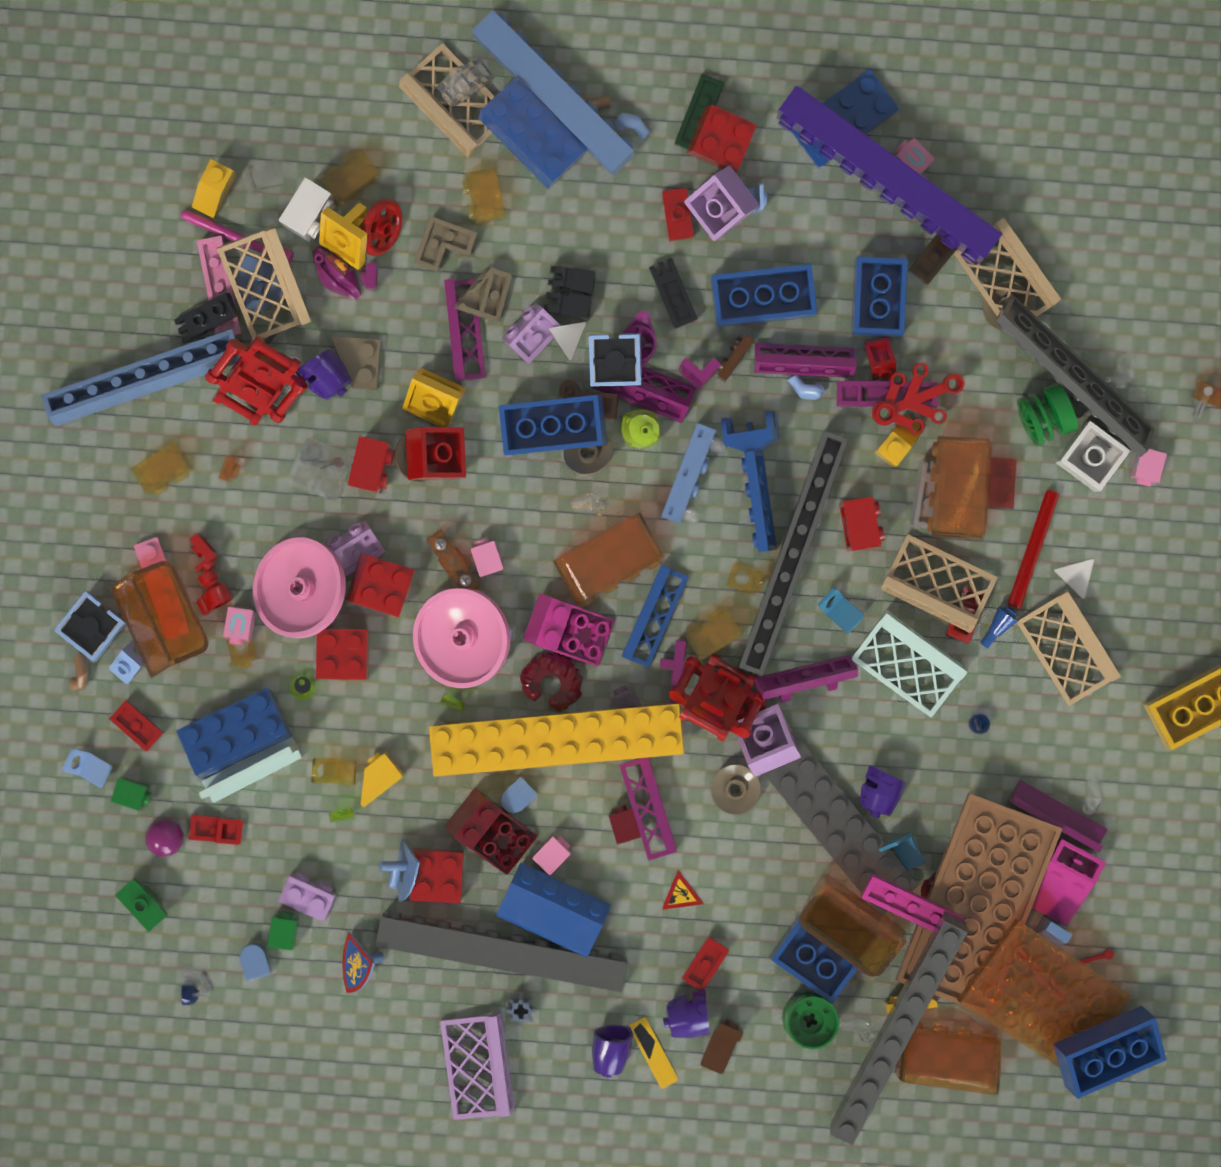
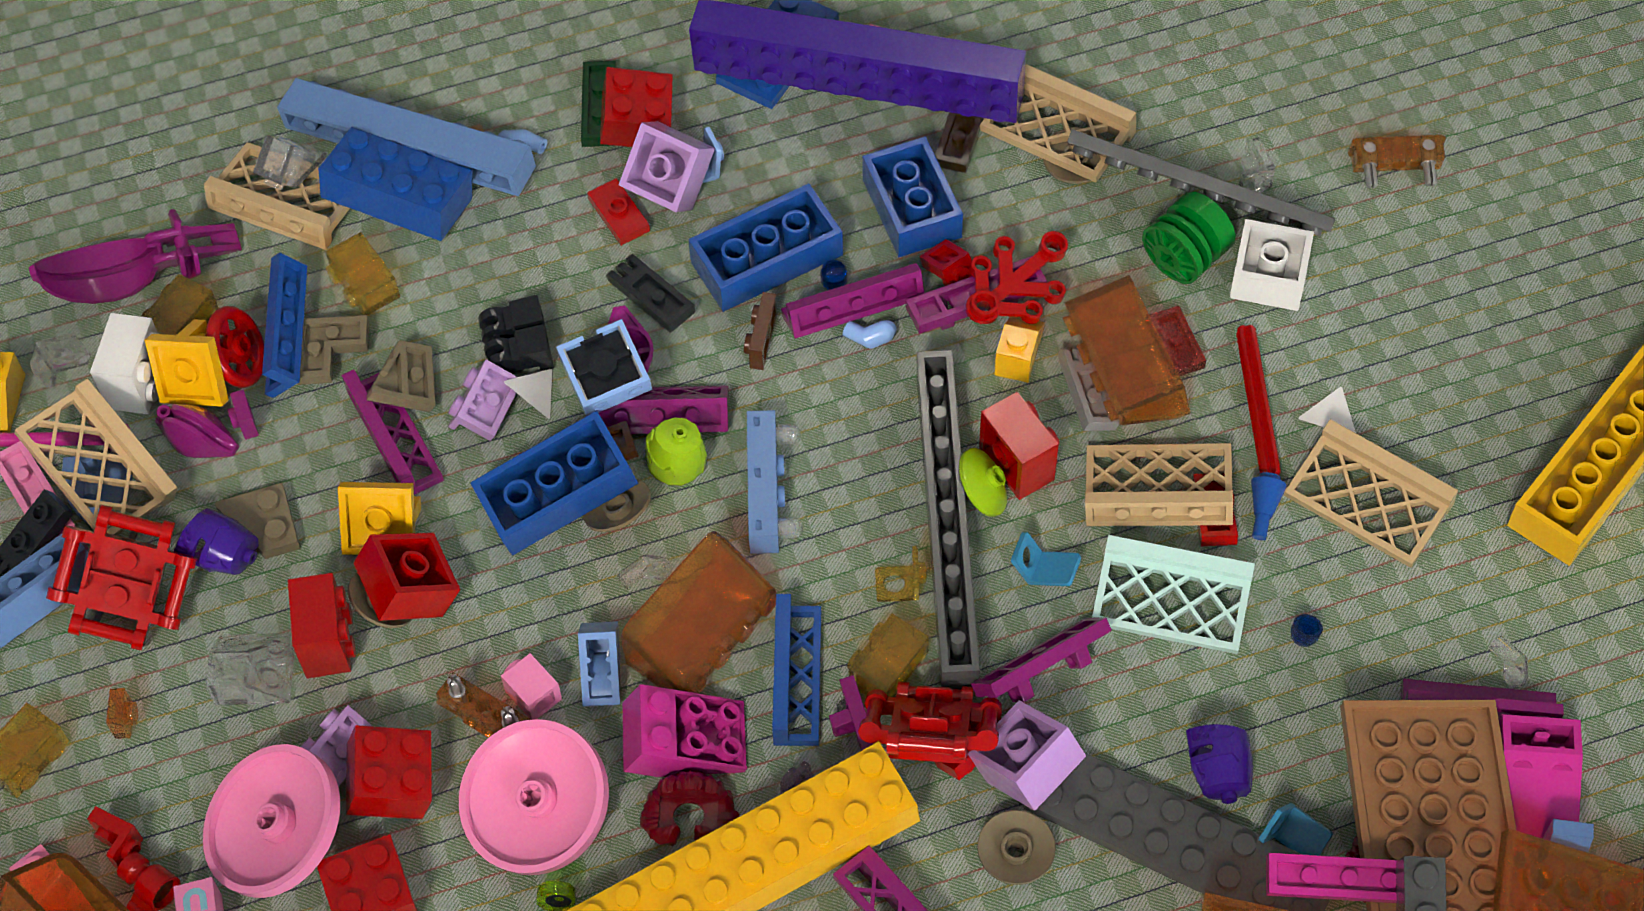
camera: 20 degrees left, 30 degrees down
(328, 118) = (127, 265): none -> magenta piece
(420, 219) = (284, 324): none -> blue fence
(535, 560) = (599, 663): none -> medium blue arch
(695, 375) = (728, 339): magenta fence -> none
(752, 444) = (829, 408): blue hinge -> none
(803, 335) = (837, 274): none -> clear blue hinge
(826, 538) = (983, 482): none -> lime dish
(1148, 467) = (1346, 253): bright pink brick -> none

